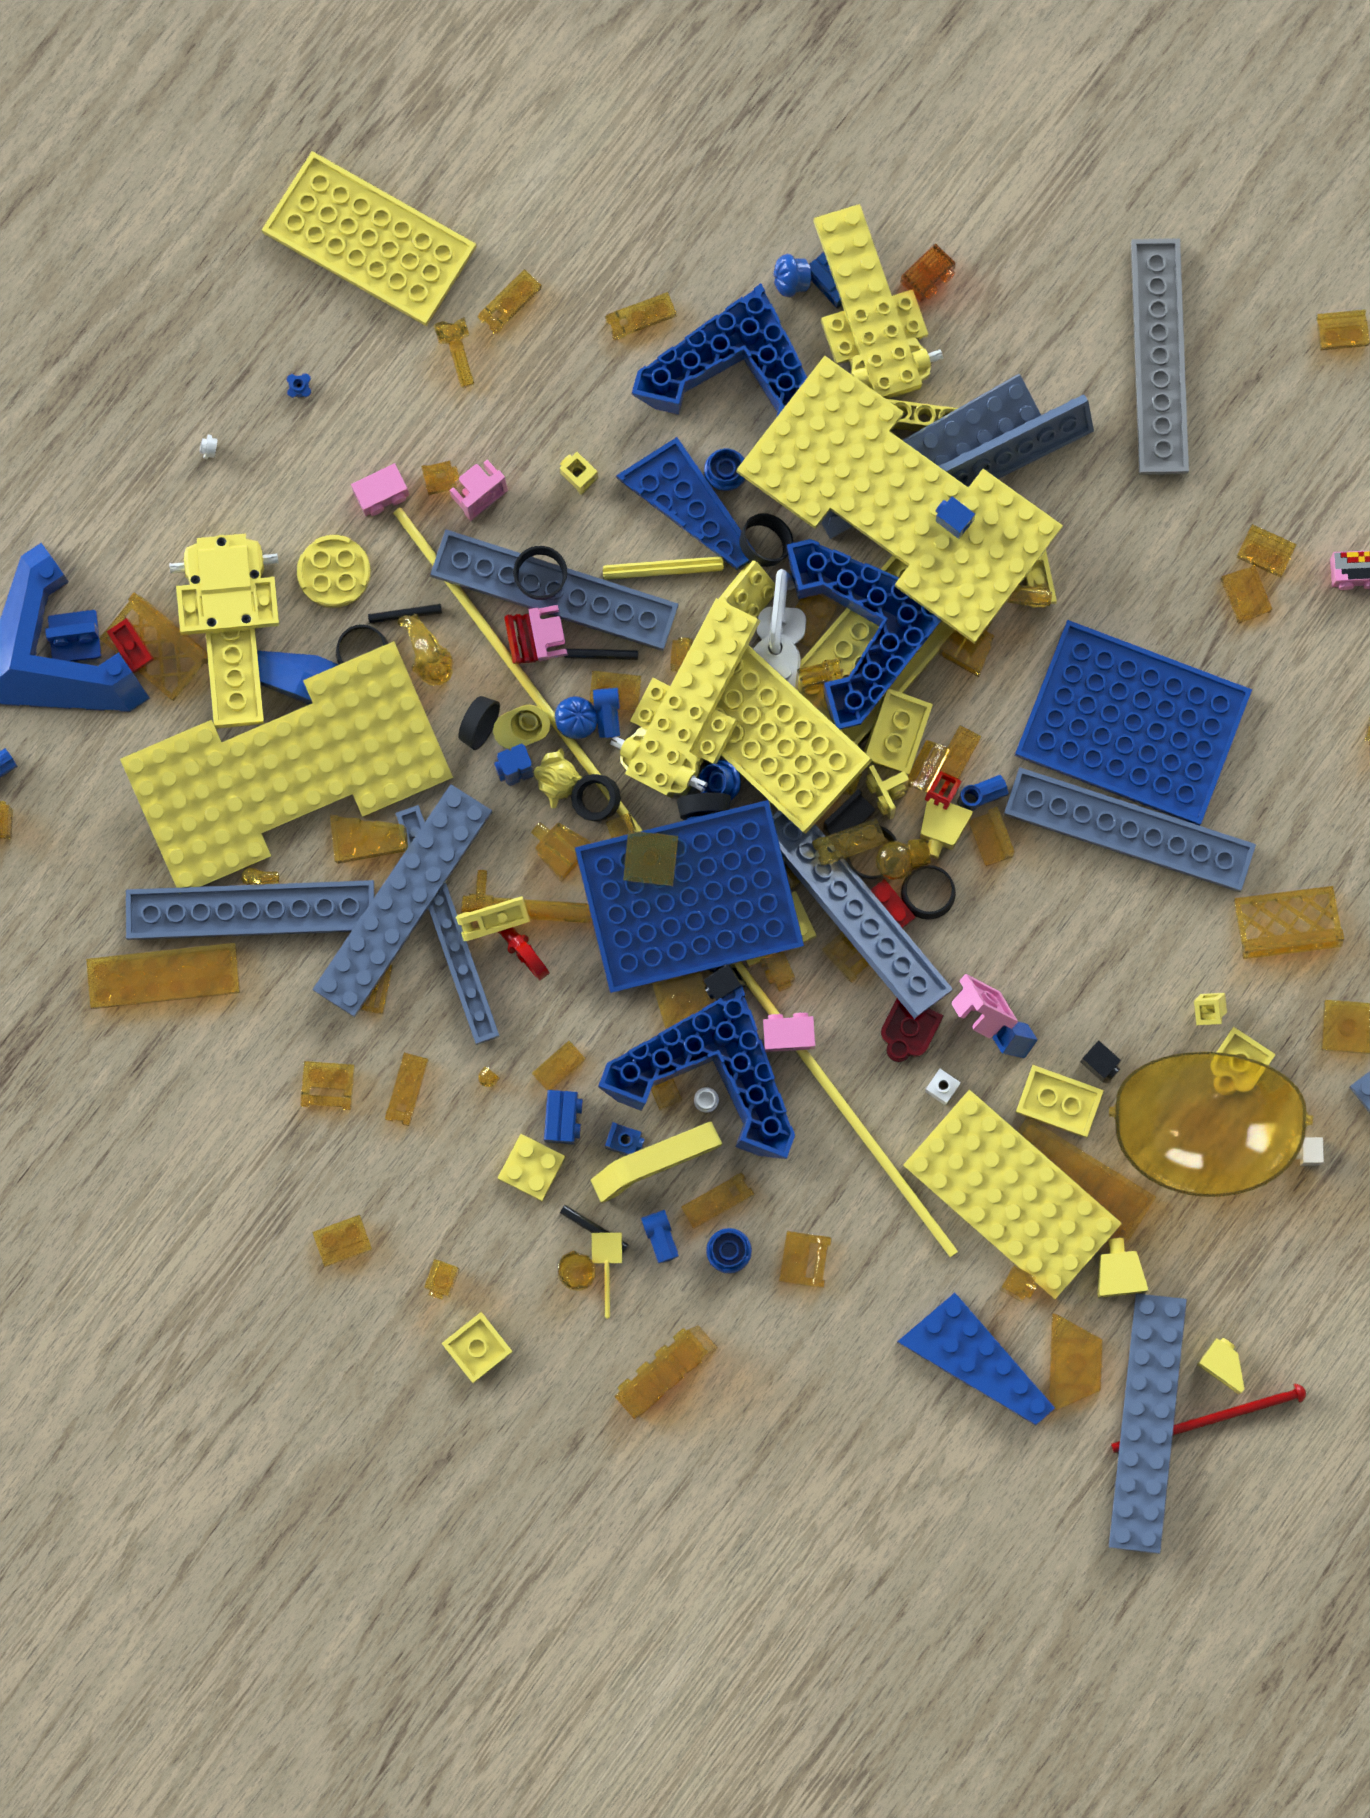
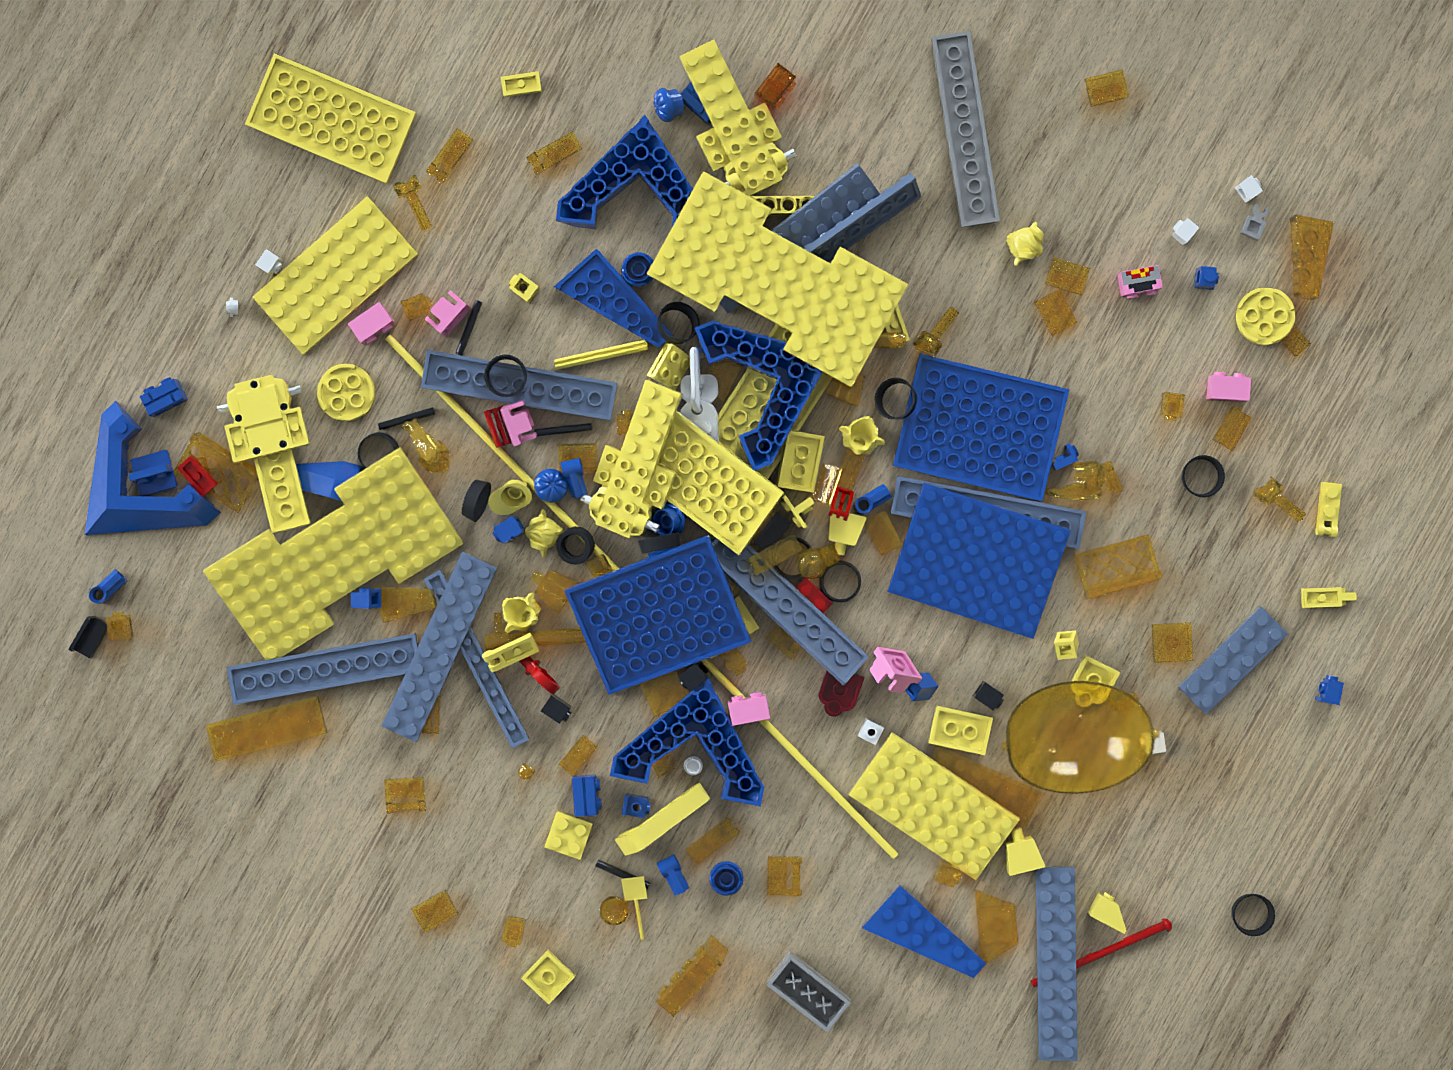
camera: 15 degrees left, 10 degrees up
(103, 544) = (163, 397): none -> blue brick
(254, 876) = (325, 642): clear yellow arm -> none
(264, 399) = (269, 262): none -> white plate
(294, 391) = (290, 250): blue plate -> none
(319, 827) = (366, 598): none -> blue brick
(343, 427) = (335, 275): none -> light yellow plate
(407, 1088) = (465, 788): clear yellow plate -> none
(501, 512) = (468, 328): none -> black bar
(513, 872) = (520, 612): none -> light yellow hair
(540, 1001) = (556, 709): none -> black brick
(611, 228) = (521, 84): none -> light yellow plate
(650, 858) = (624, 592): clear yellow plate -> none
(816, 1411) = (808, 991): none -> light grey brick
(819, 674) = (737, 426): clear yellow arm -> none
(954, 517) = (822, 291): blue brick -> none
(979, 710) = (861, 436): none -> light yellow hair
(1019, 653) = (880, 393): none -> black tyre
(1081, 606) = (930, 341): none -> clear yellow piece
(1110, 887) = (978, 560): none -> blue plate
(1218, 503) = (1026, 243): none -> light yellow hair
(1235, 778) = (1062, 461): none -> blue bracket
(1261, 814) = (1088, 484): none -> clear yellow hair
(1294, 812) = (1112, 483): none -> clear yellow plate

